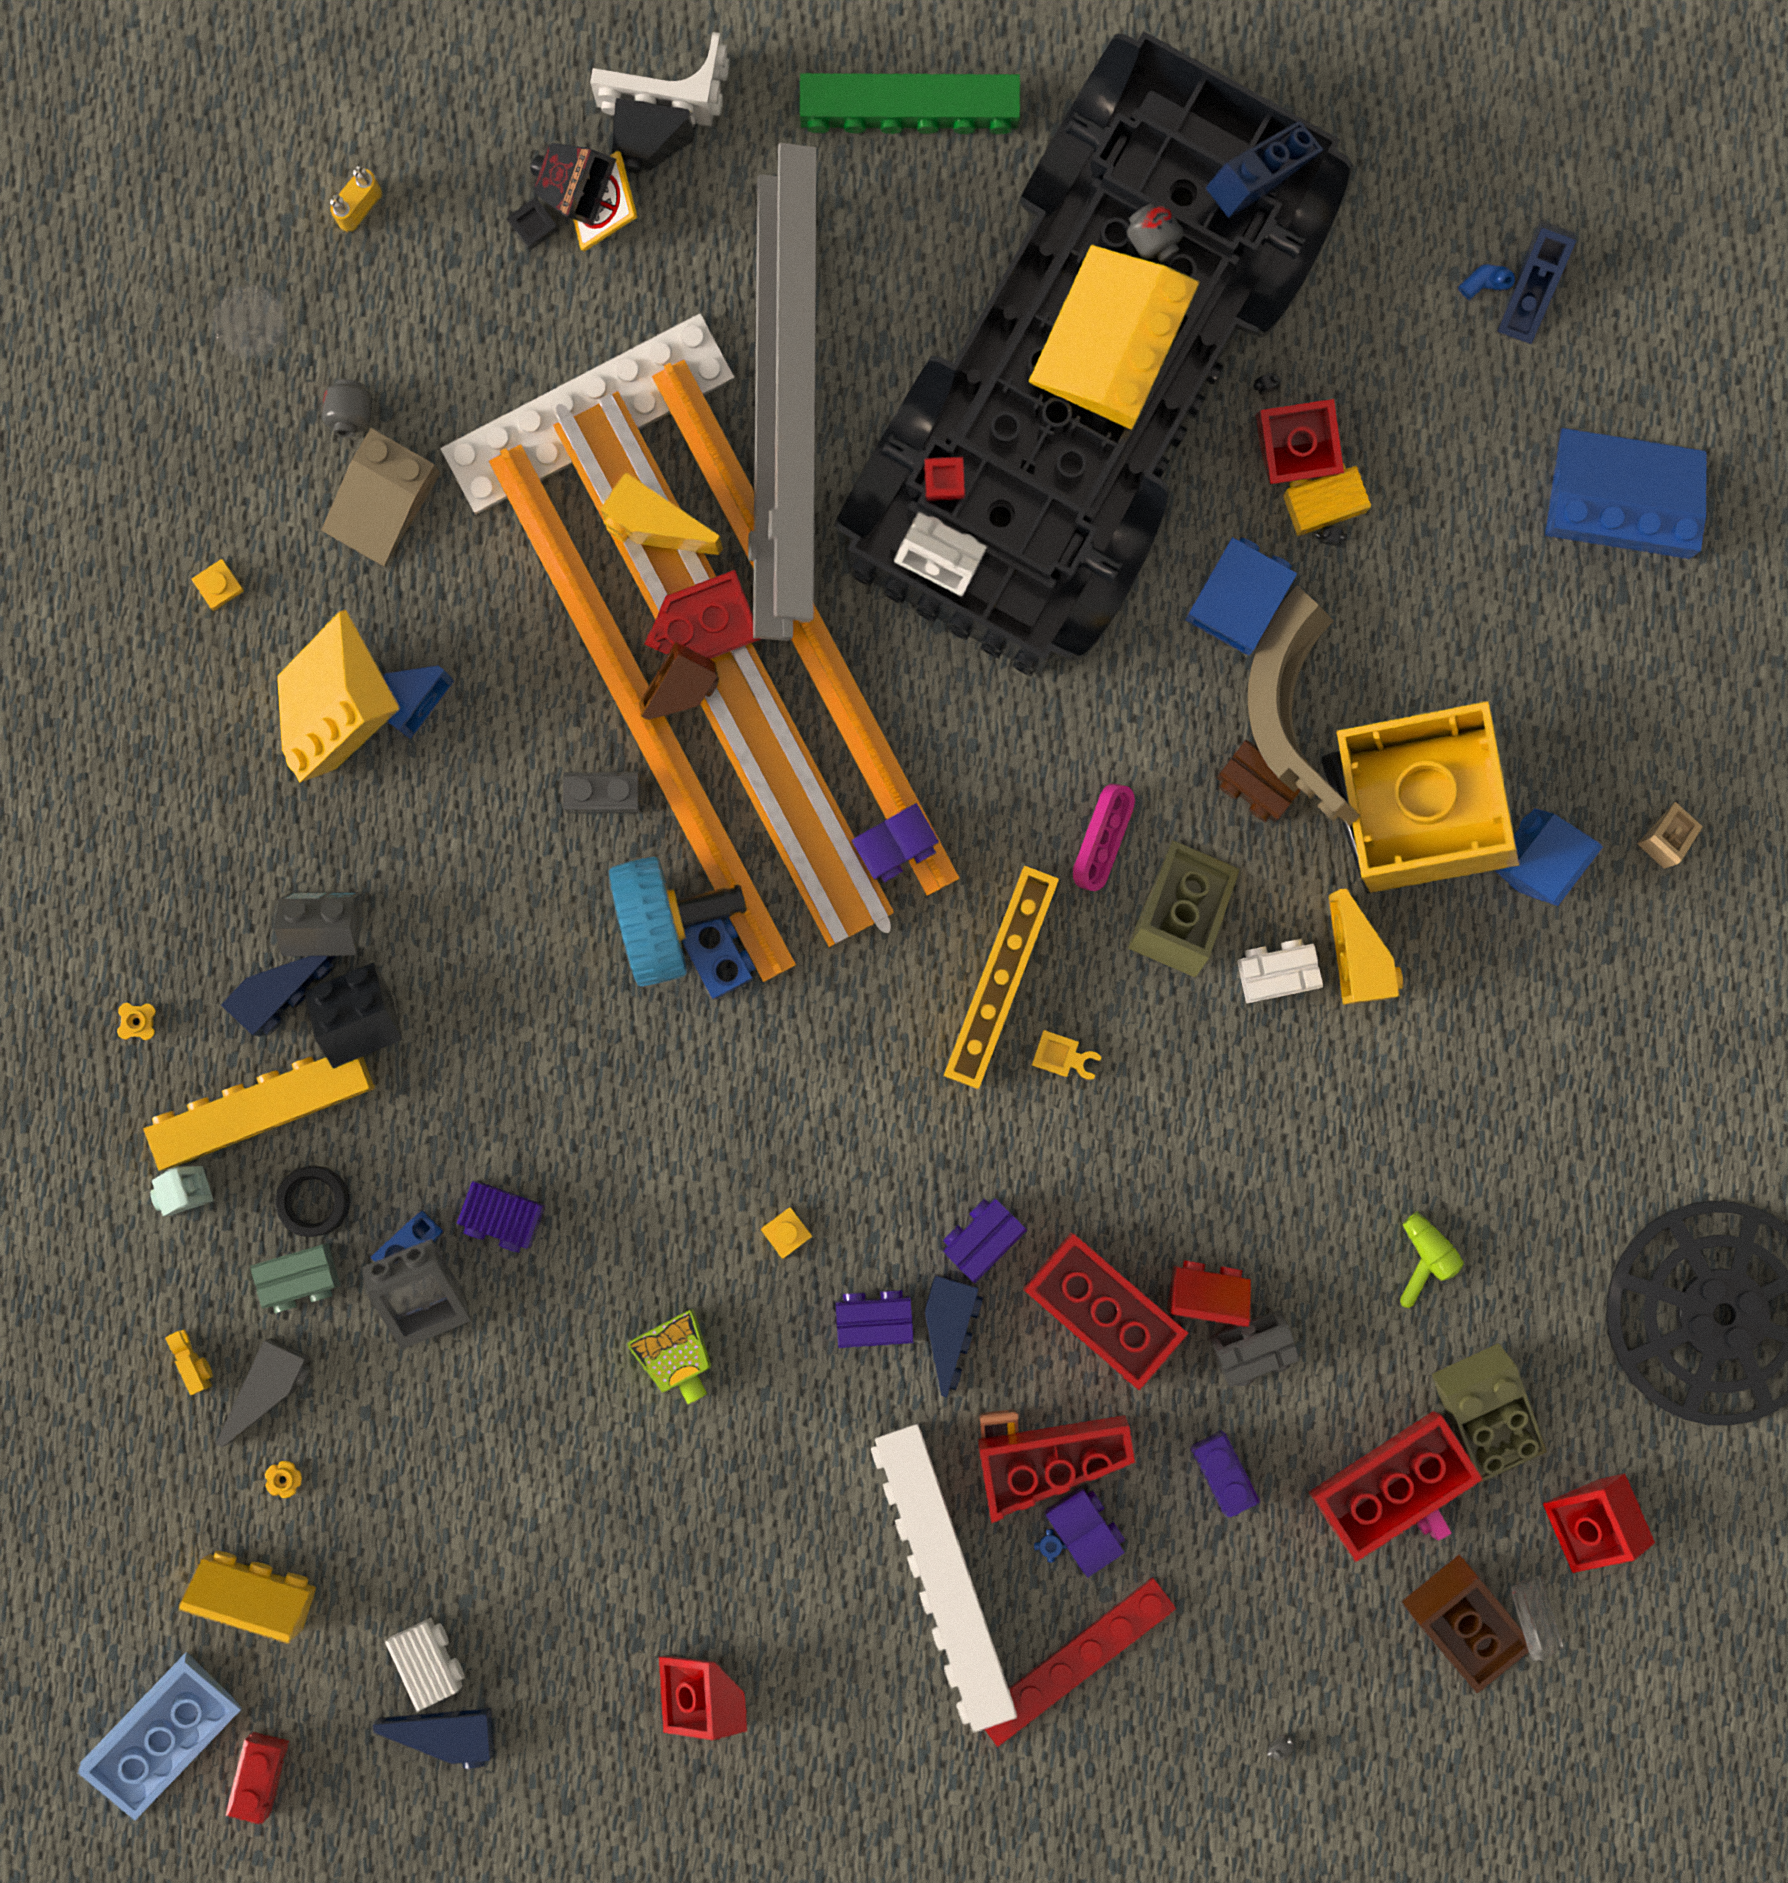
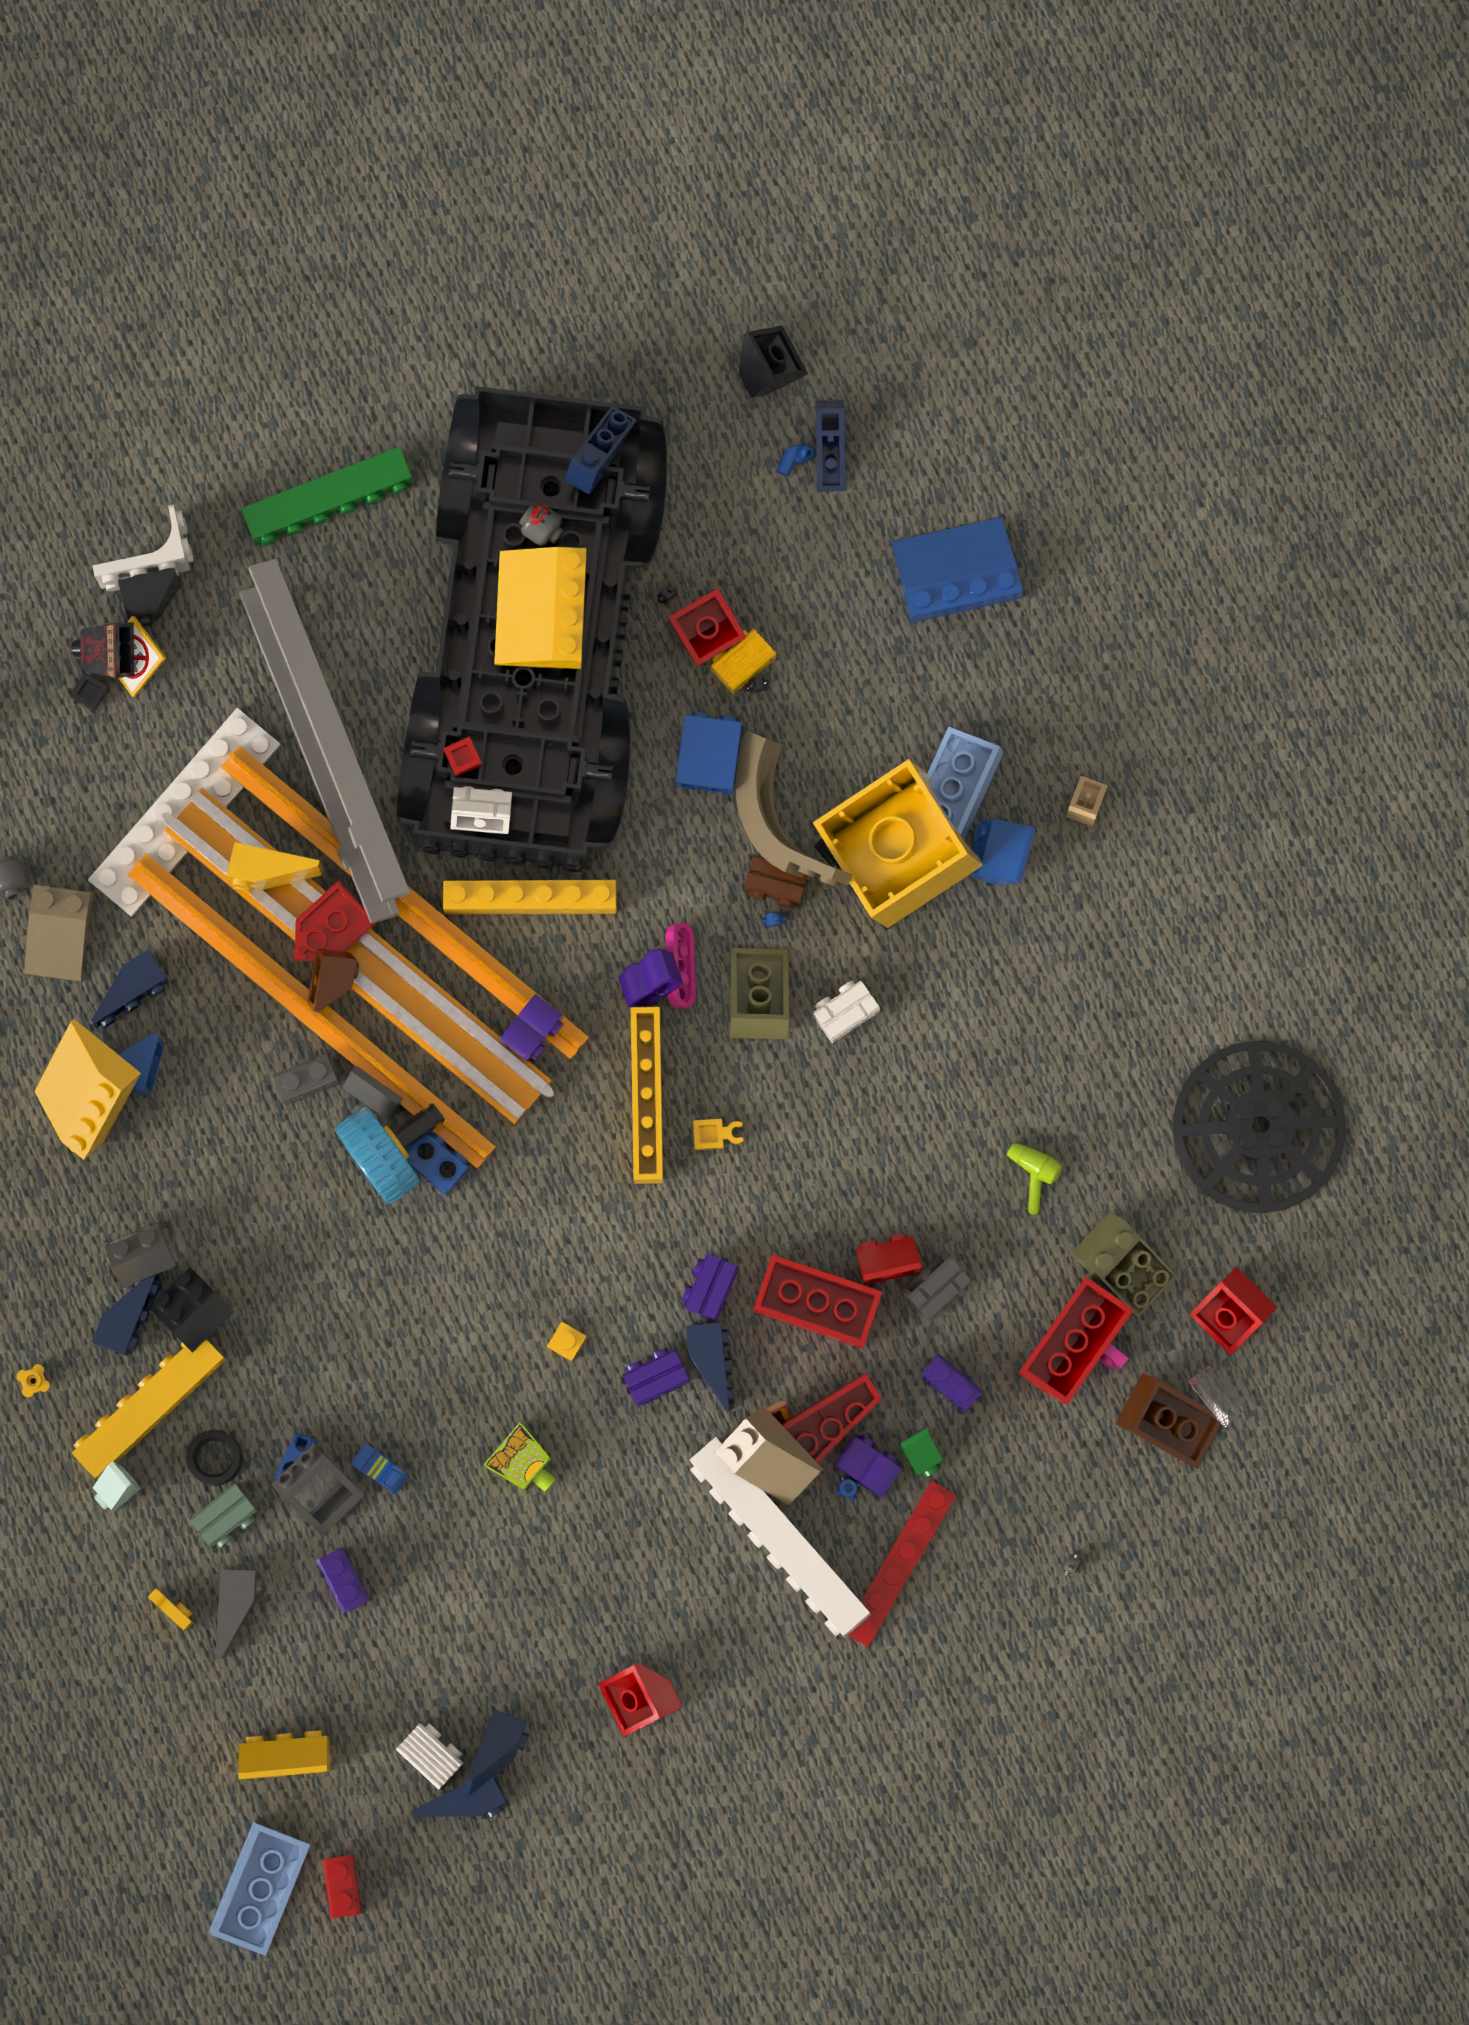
camera: 20 degrees left, 5 degrees down
(292, 1476) = (281, 1665): yellow plate -> none
(405, 1412) = (343, 1580): none -> dark purple brick
(443, 594) = (133, 983): none -> dark blue slope
(500, 1215) = (355, 1412): dark purple brick -> none
(503, 1295) = (379, 1469): none -> blue leg
(507, 1691) = (497, 1749): none -> dark blue slope
(675, 841) = (372, 1093): none -> dark grey tile
(956, 681) = (530, 897): none -> yellow brick
(971, 1478) = (769, 1457): none -> dark tan slope
(1061, 839) = (650, 979): none -> dark purple brick
(1155, 1544) = (921, 1454): none -> green slope
(1237, 826) = (773, 919): none -> blue piece
(1363, 960) = (900, 976): yellow slope -> none
(1503, 150) = (769, 361): none -> black slope
(1537, 741) = (962, 776): none -> light blue slope

